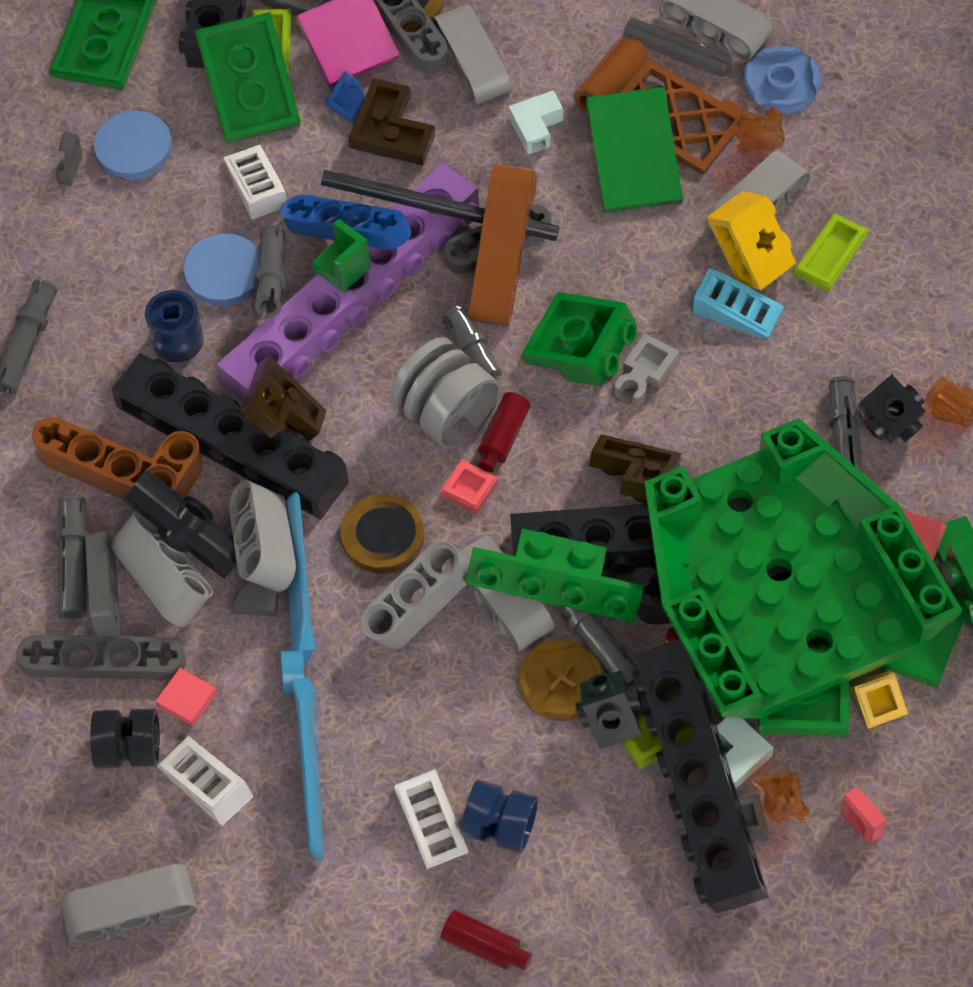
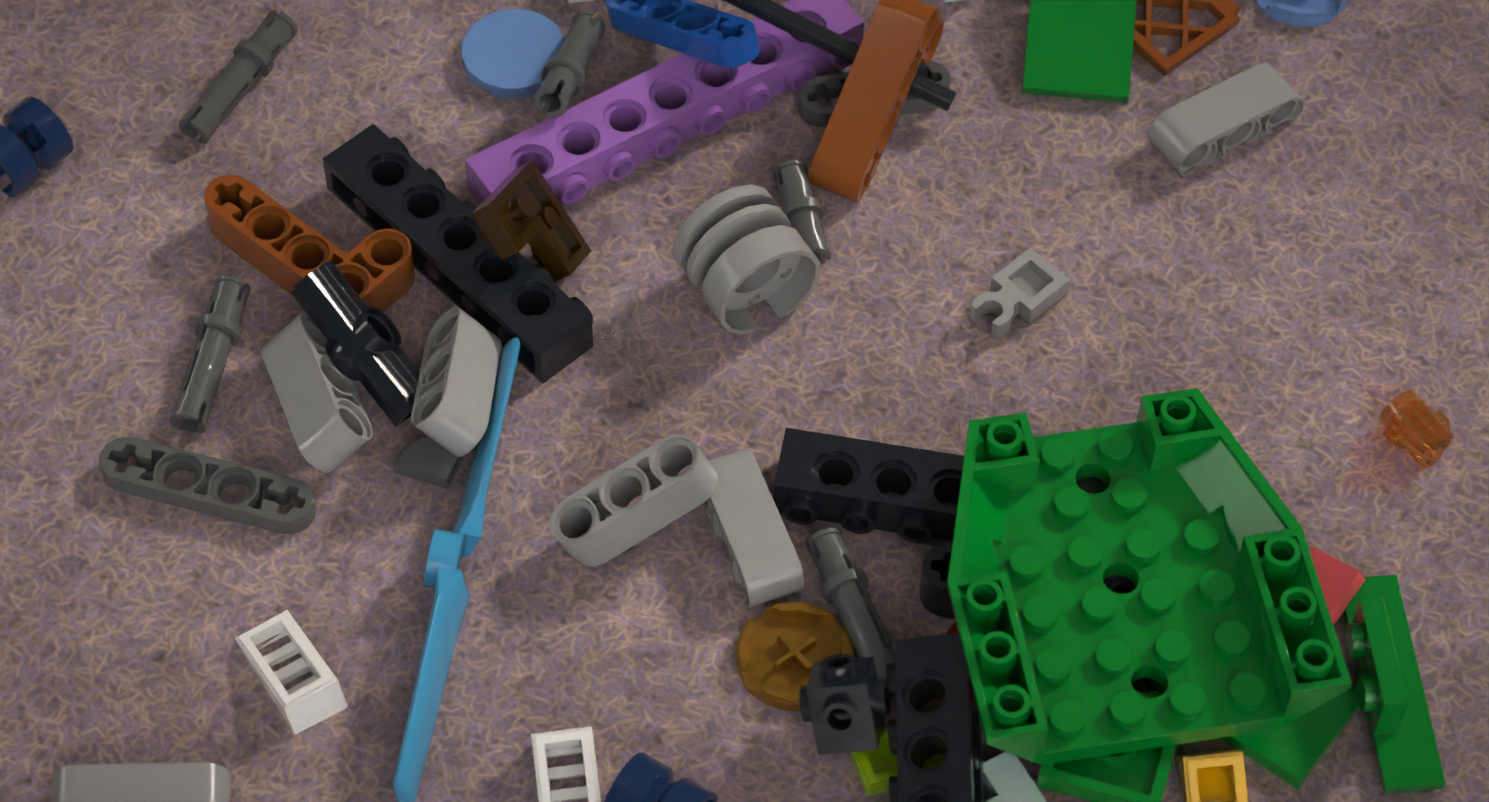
camera: 10 degrees right, 5 degrees down
(102, 585) = (235, 395): dark grey beam -> none
(110, 740) = (194, 589): black wheel -> none
(174, 326) = (427, 103): dark blue wheel -> none
(186, 697) = (300, 561): coral tile -> none
(344, 259) = (665, 68): green panel -> none
(382, 533) = (614, 415): tile -> none
(469, 486) = (746, 386): coral tile -> none
(503, 430) = (811, 326): dark red cylinder -> none
(556, 573) = (822, 515): green bracket -> none
(581, 337) = (946, 235): green plate -> none
(634, 461) = (962, 399): dark brown plate -> none
(719, 312) = (1155, 216): medium azure slope -> none
(752, 239) = (1202, 161): yellow brick -> none
(759, 131) = (1251, 35): clear orange piece -> none
(831, 252) = (1305, 206): lime tile -> none
(845, 419) = (1267, 414): dark grey pin -> none
(893, 395) = (1332, 398): black brick -> none

